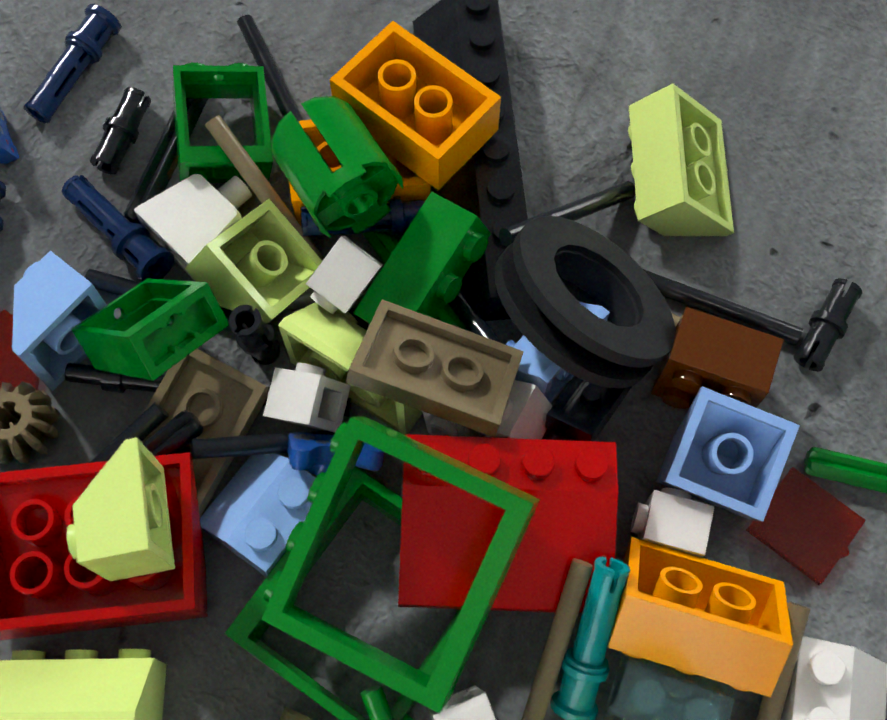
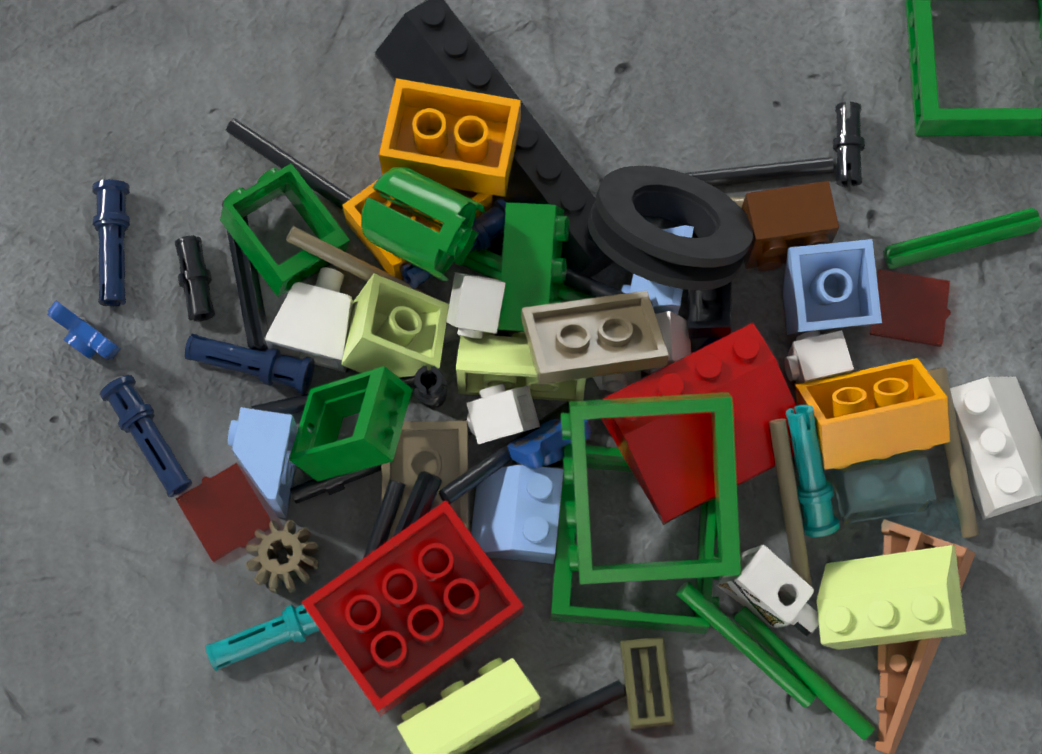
camera: 30 degrees left, 5 degrees up
(124, 517) = (448, 568): yellowish green slope -> none
(576, 209) = (610, 158): black bar -> none
(679, 166) = (668, 71): yellowish green slope -> none

